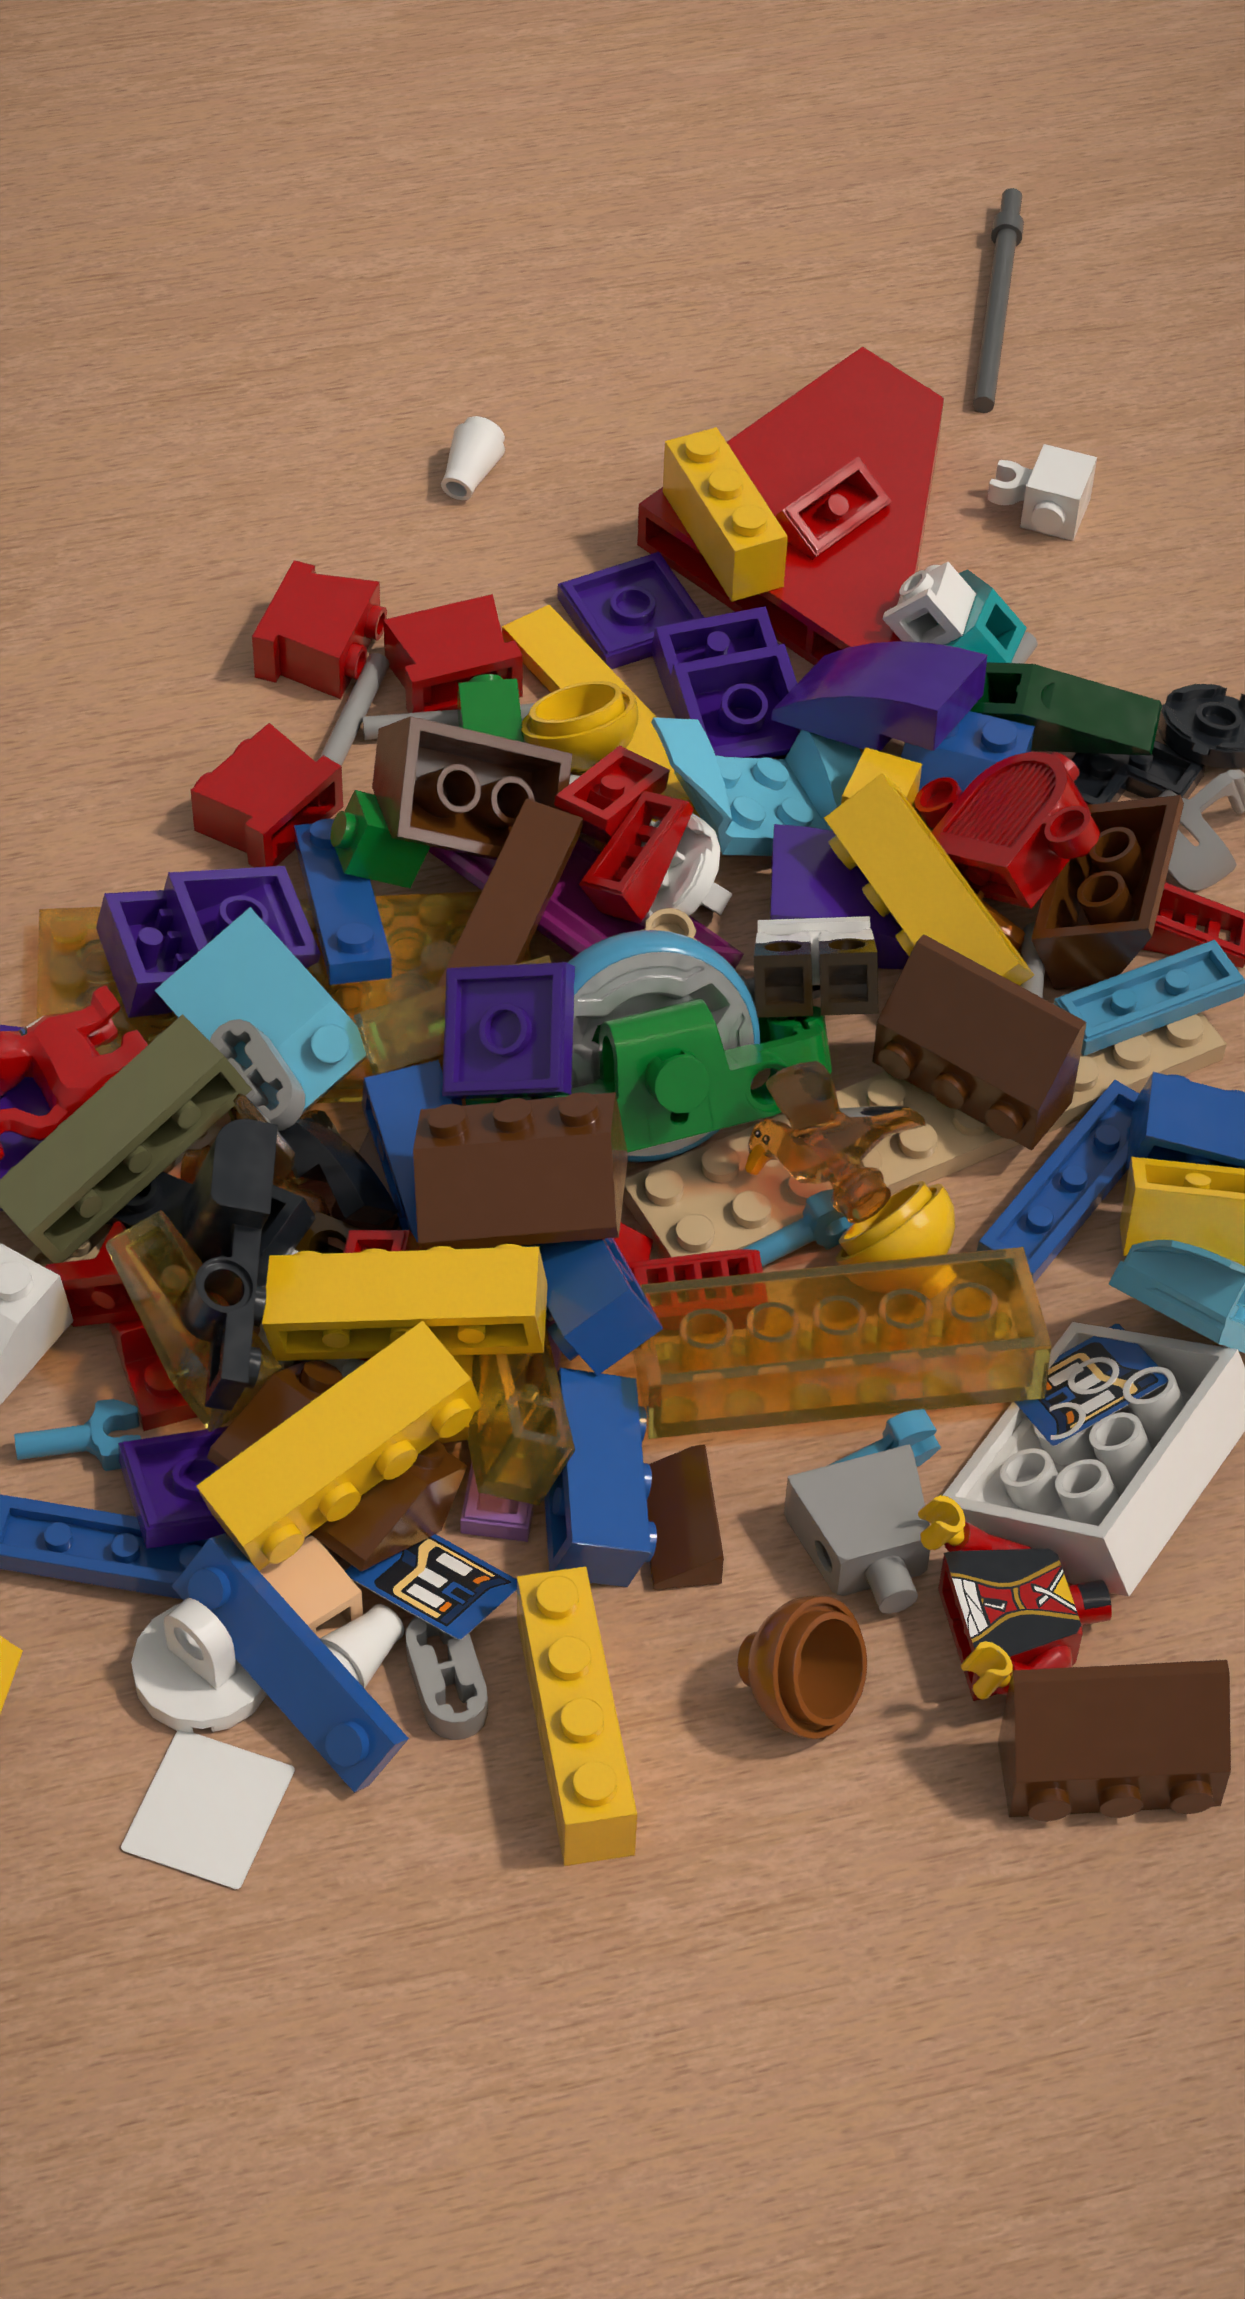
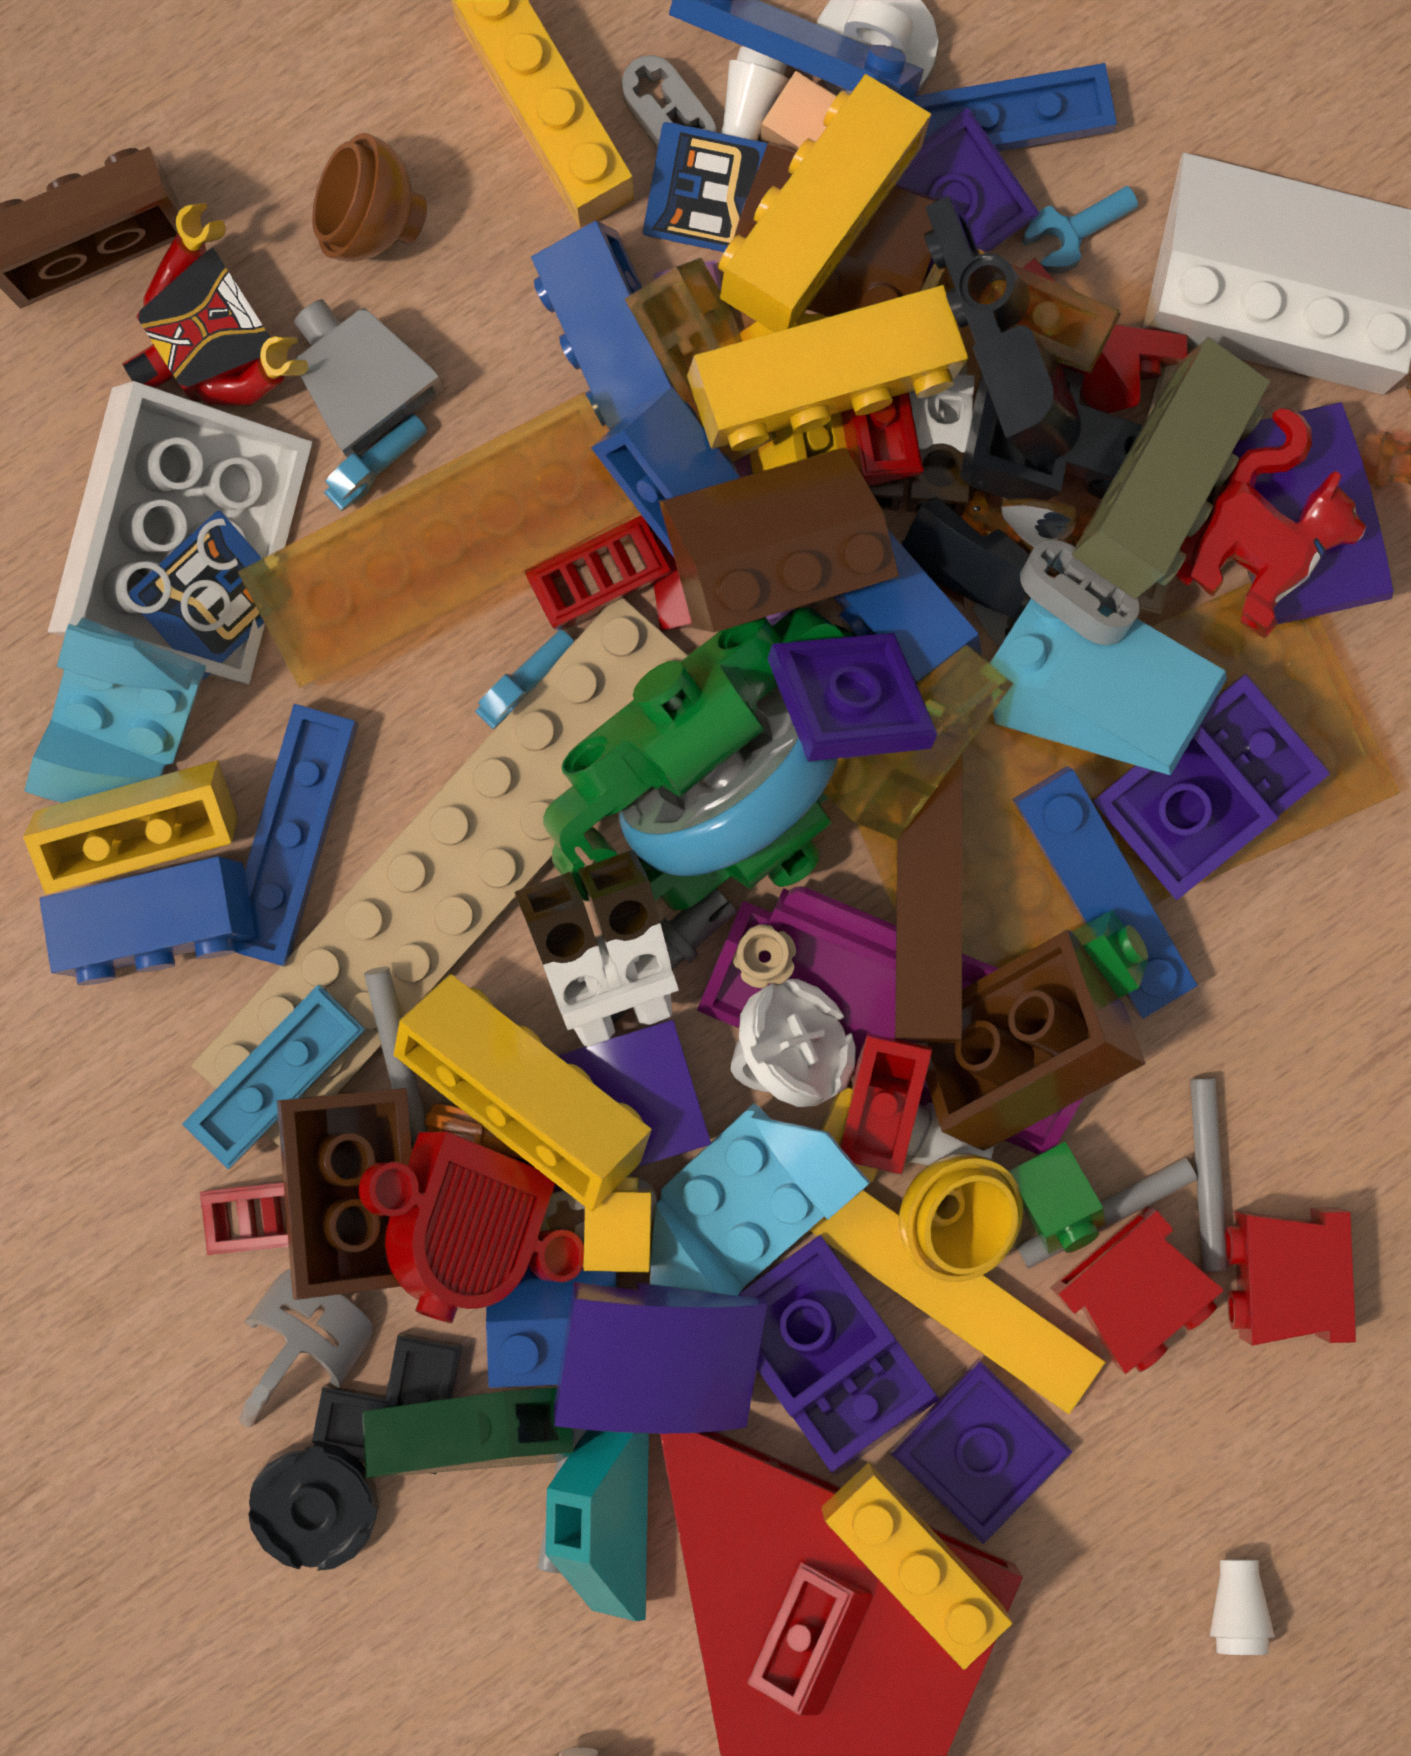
camera: 160 degrees right, 35 degrees up
(262, 795) = (1245, 1019): red hips -> none
(627, 875) = (851, 1019): red slope -> none
(685, 1520) = (525, 334): reddish brown slope -> none
(827, 1140) = (508, 747): clear orange animal -> none
(911, 1225) = (427, 686): yellow piece -> none
(929, 599) = (647, 1519): white brick -> none
(979, 1043) = (412, 905): reddish brown slope -> none

